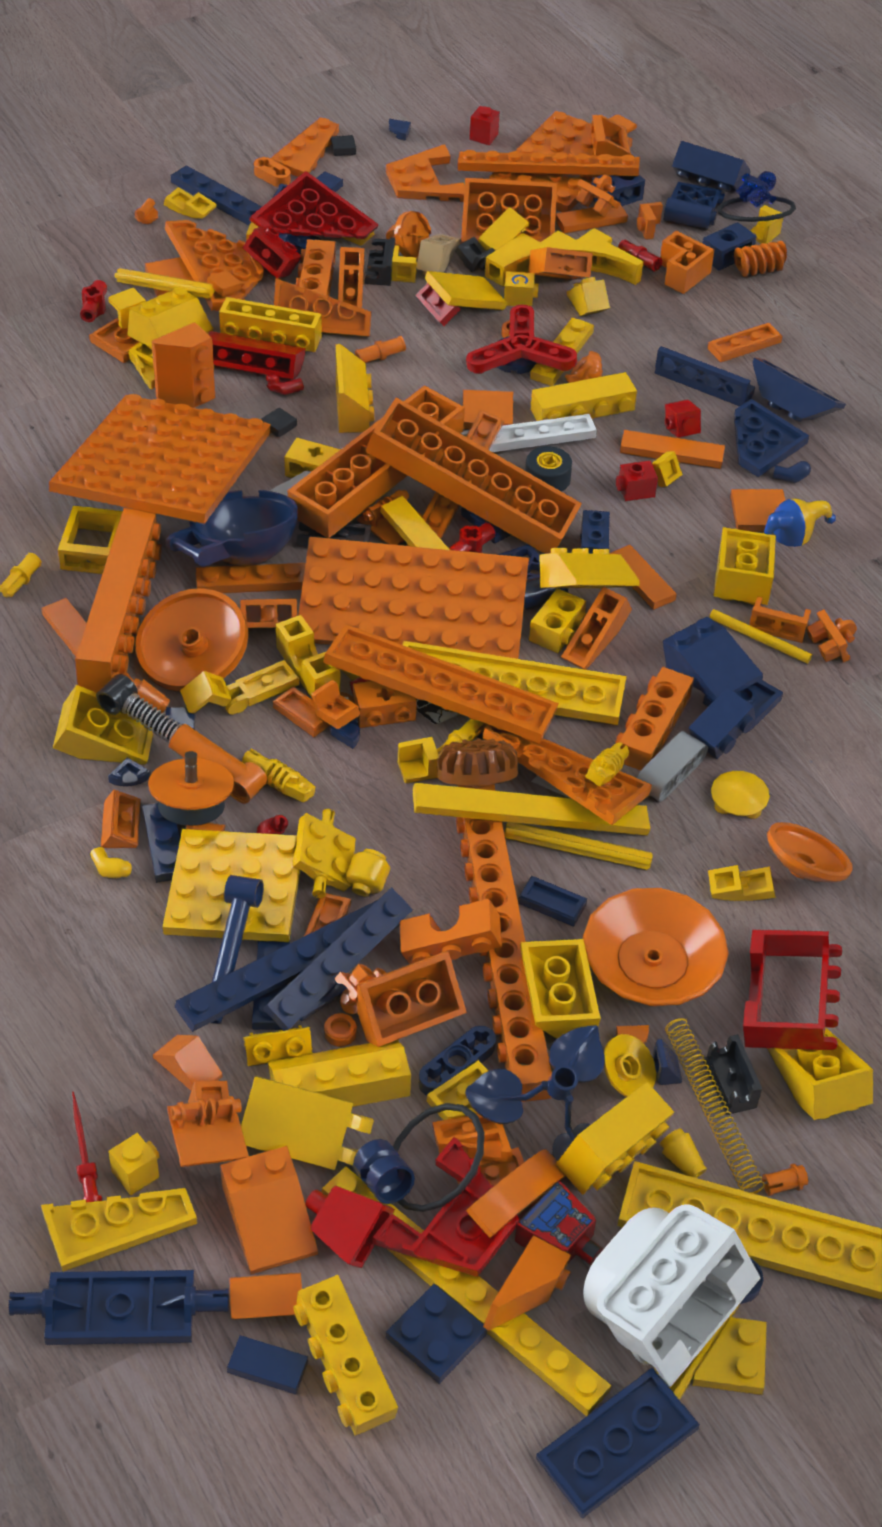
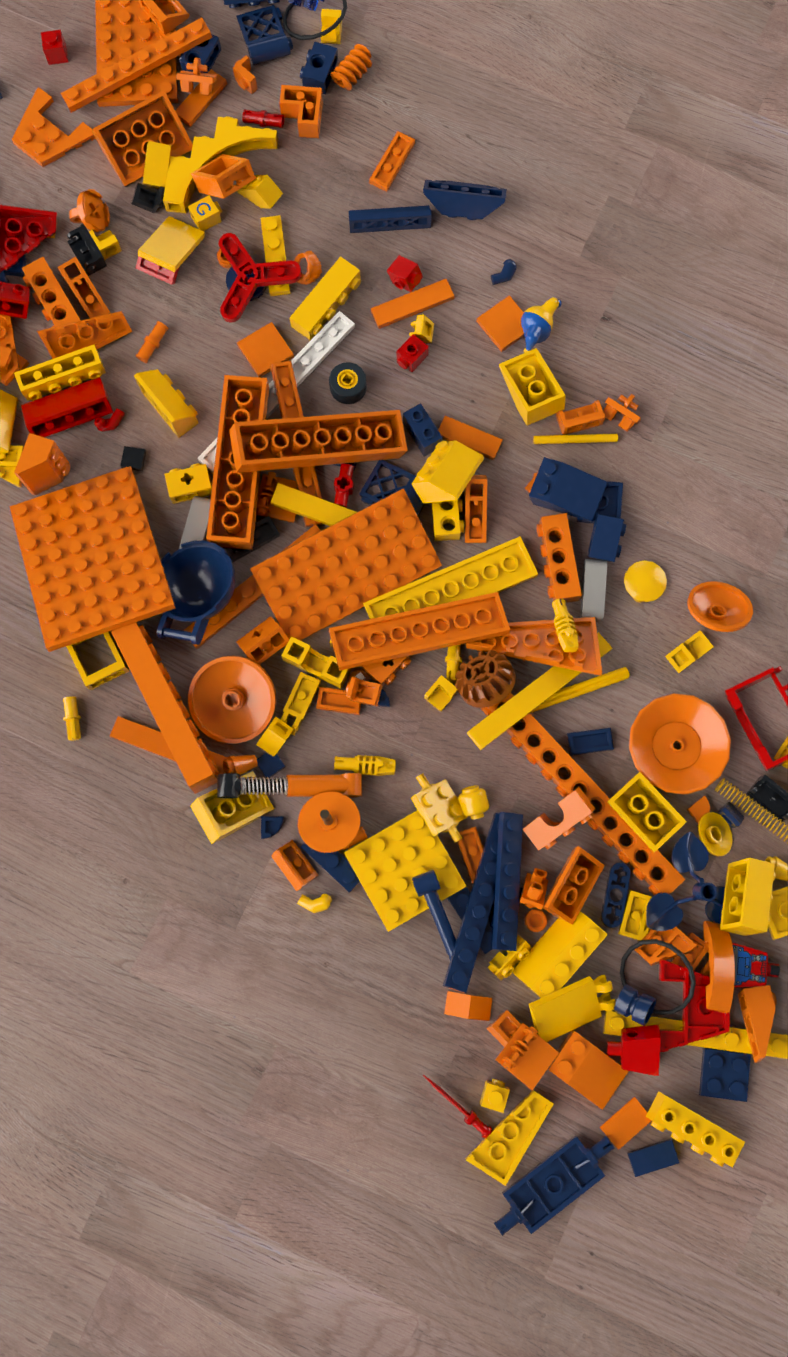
camera: 30 degrees left, 30 degrees up
(273, 825) = (389, 808): red arm -> none
(436, 253) = (120, 213): tan slope -> none
(764, 438) = (466, 253): dark blue plate -> none

